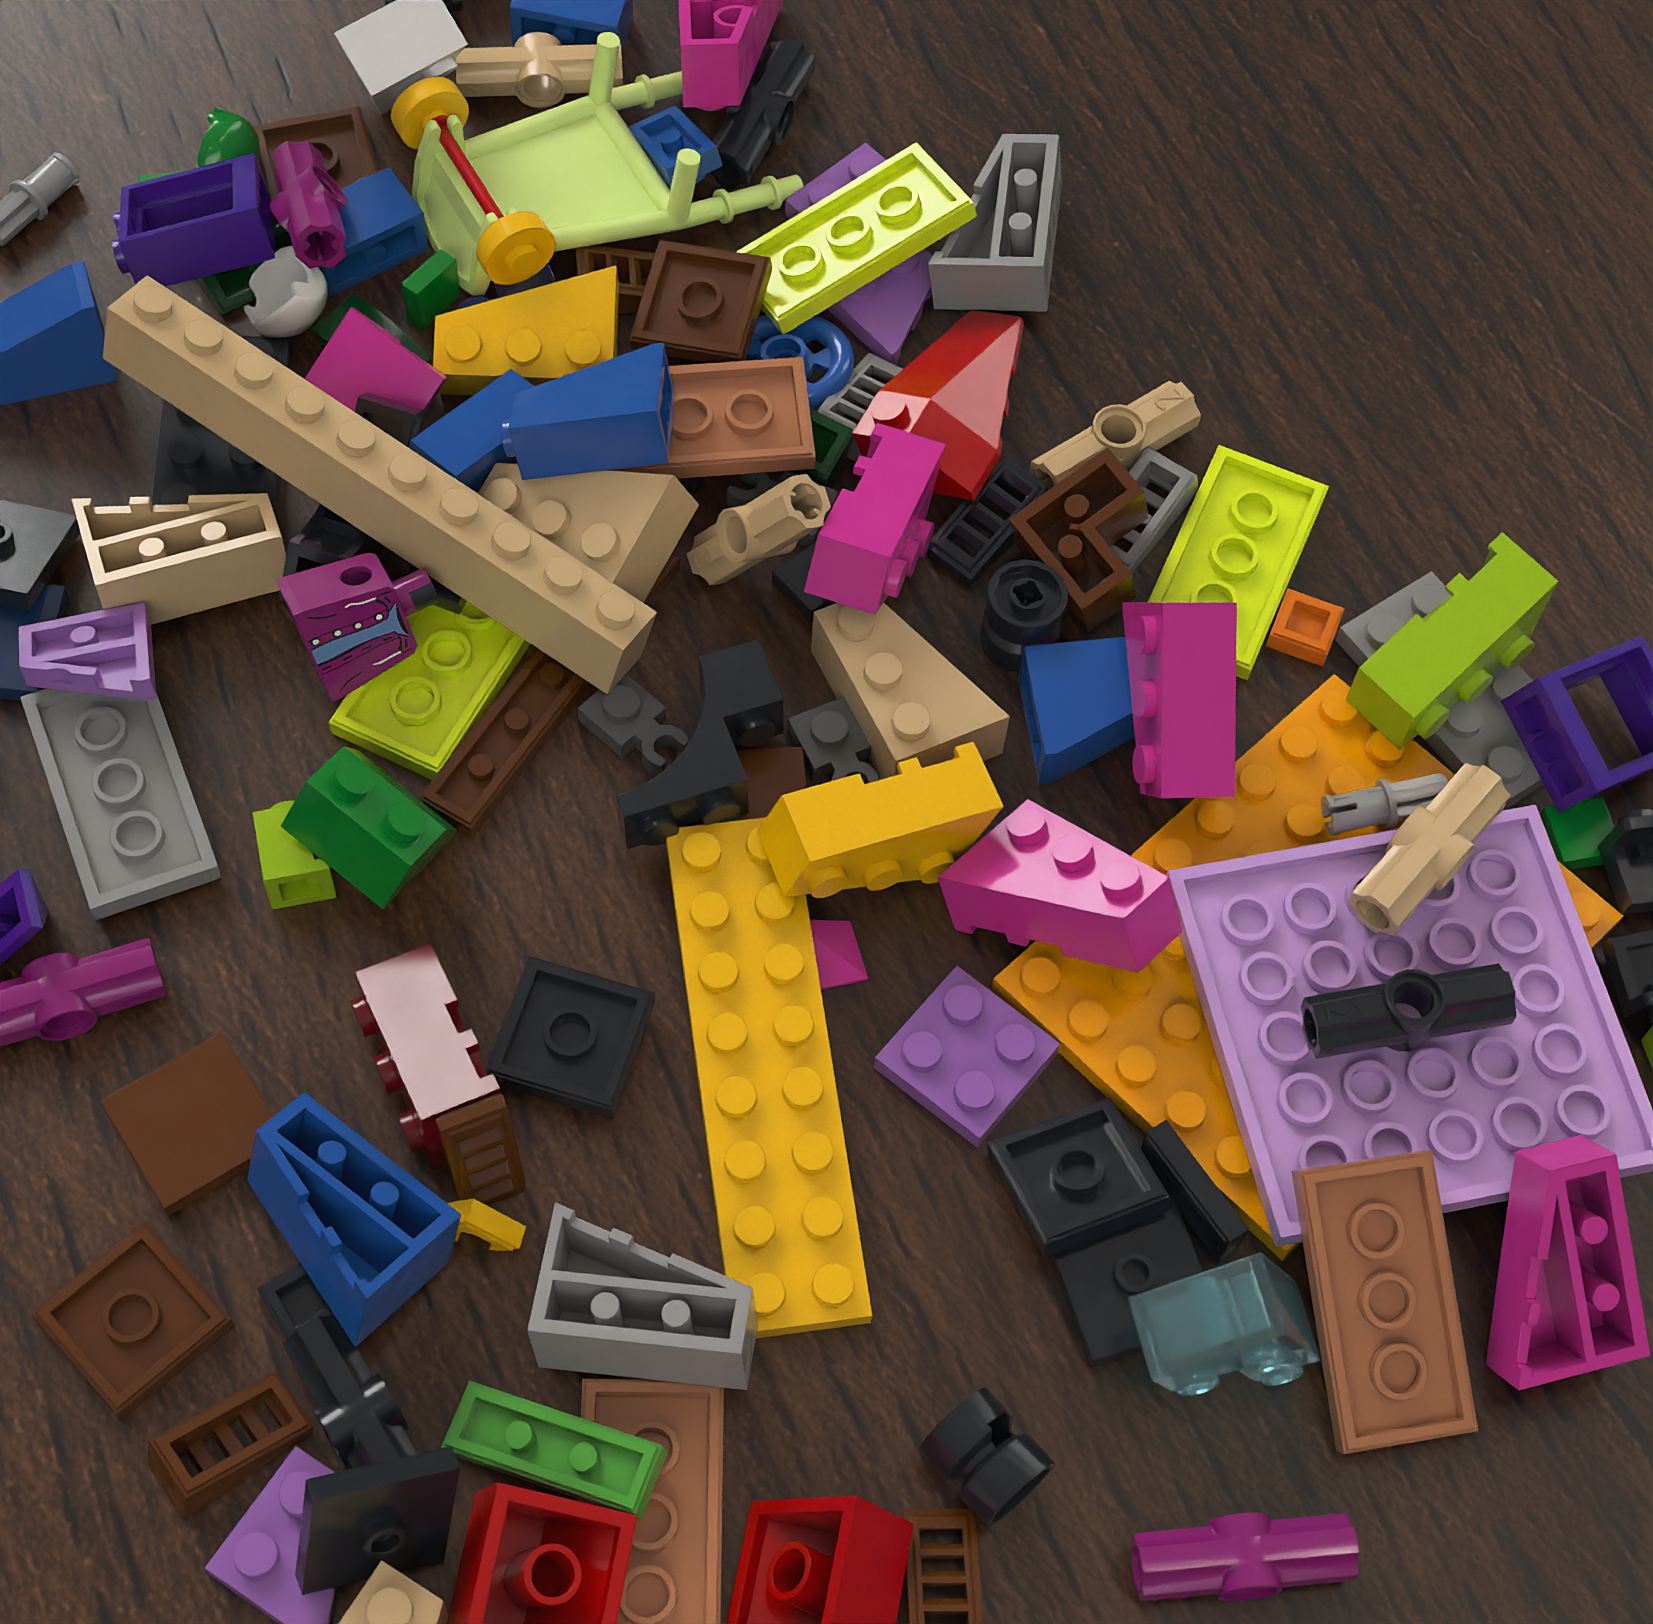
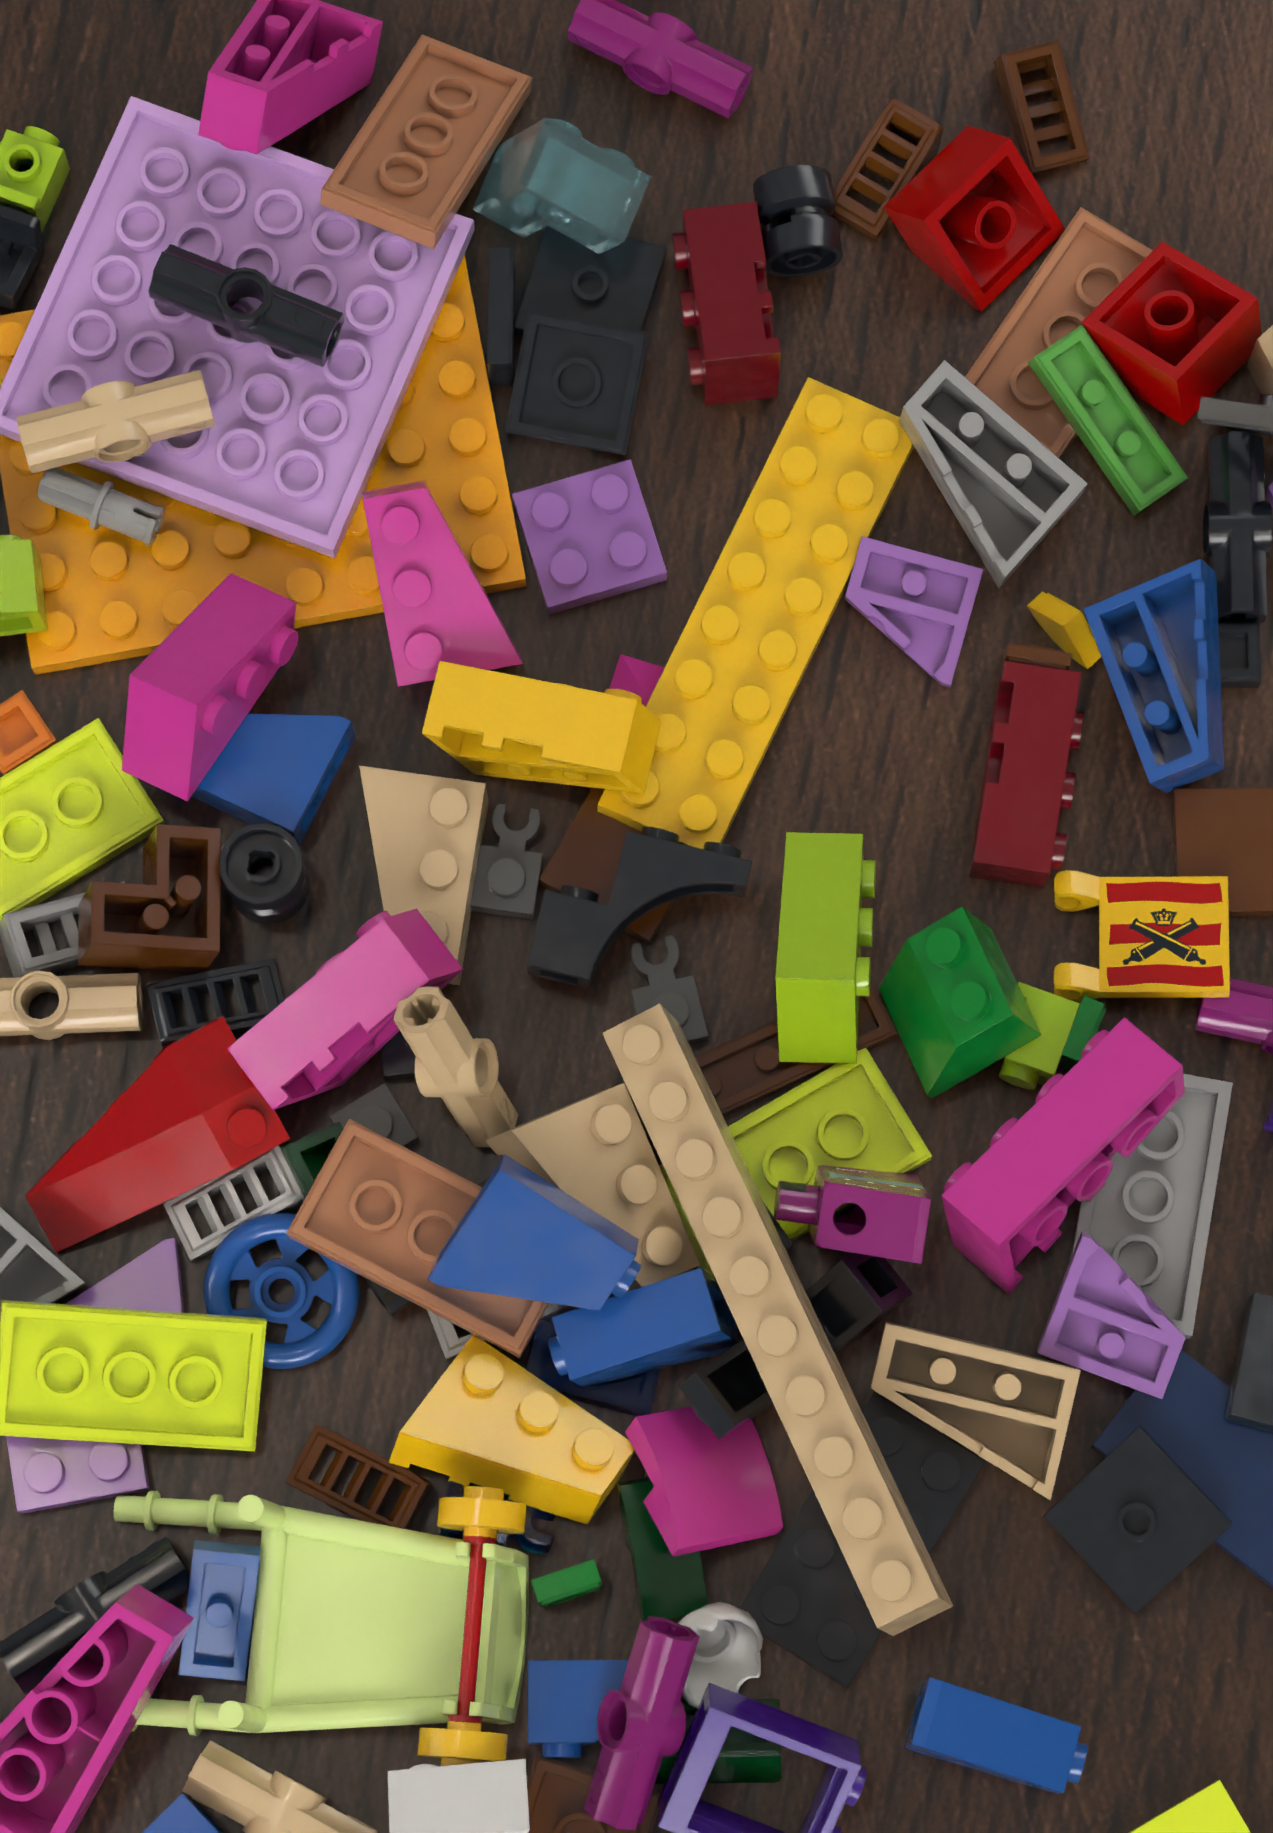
camera: 140 degrees left, 15 degrees up
(208, 744) = (1059, 1150): none -> dark pink wedge
(227, 986) = (1153, 936): none -> yellow flag
(249, 877) = (1083, 1029): none -> green tile
(526, 809) = (821, 946): none -> lime wedge
(570, 1037) = (898, 737): black plate -> none
(633, 1165) = (915, 602): none -> medium lavender wing
(701, 302) = (323, 1391): reddish brown tile -> none
(992, 1324) = (727, 304): none -> dark red wedge

